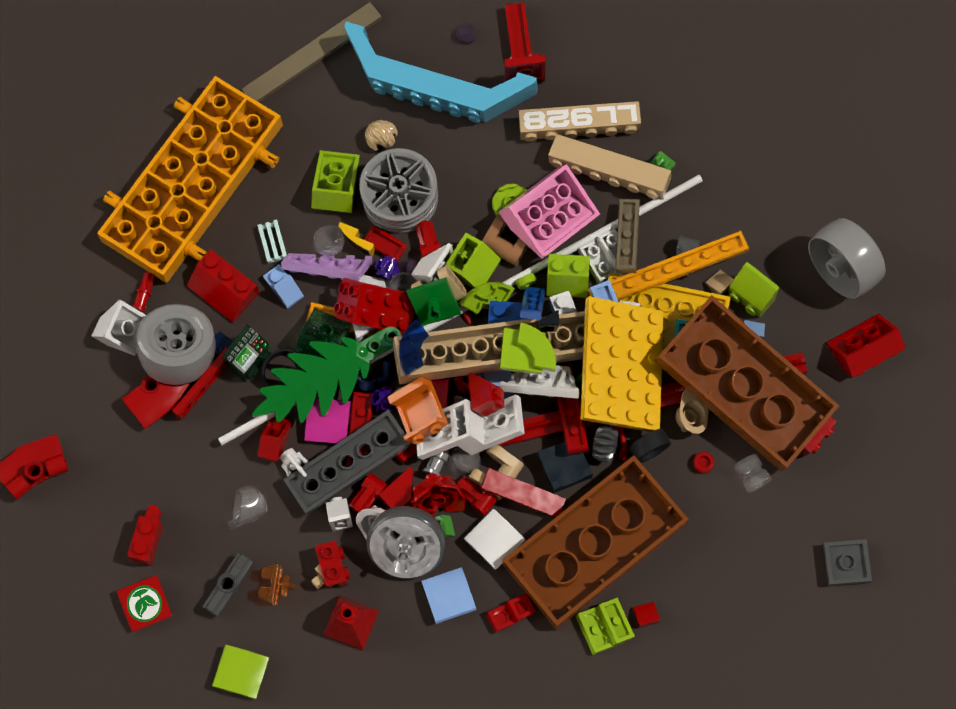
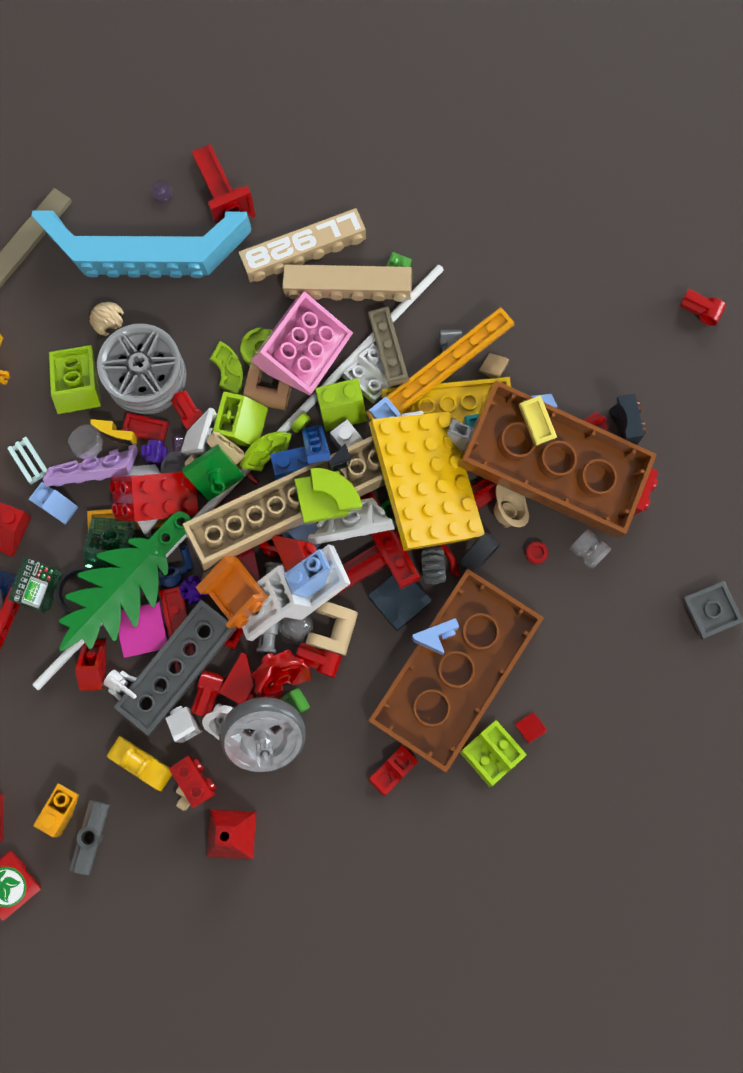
camera: 20 degrees left, 5 degrees up
(208, 553) = (57, 811): none -> light orange slope
(240, 671) = (131, 927): lime slope -> none
(248, 506) = (86, 748): clear helmet -> none
(271, 593) = (136, 810): clear orange hips -> none
(290, 536) = (139, 763): none -> yellow piece
(410, 346) = (203, 530): clear blue tile -> none
(449, 595) = (323, 773): light blue slope -> none
(477, 213) = (229, 367): none -> lime tile
(490, 415) = (308, 575): none -> light blue slope
(494, 538) = (352, 699): white slope -> none
(522, 493) = (366, 643): tile -> none
(580, 502) = (430, 637): none -> light blue slope
(665, 333) = (459, 433): none -> light grey slope
(737, 342) = (537, 420): none -> light yellow tile
(753, 290) = (531, 363): lime slope -> none
(826, 362) = (627, 418): none -> black brick
(847, 258) = (616, 302): light grey wheel -> none
(866, 345) = (660, 383): red slope -> none
(937, 290) = (706, 308): none -> red piece

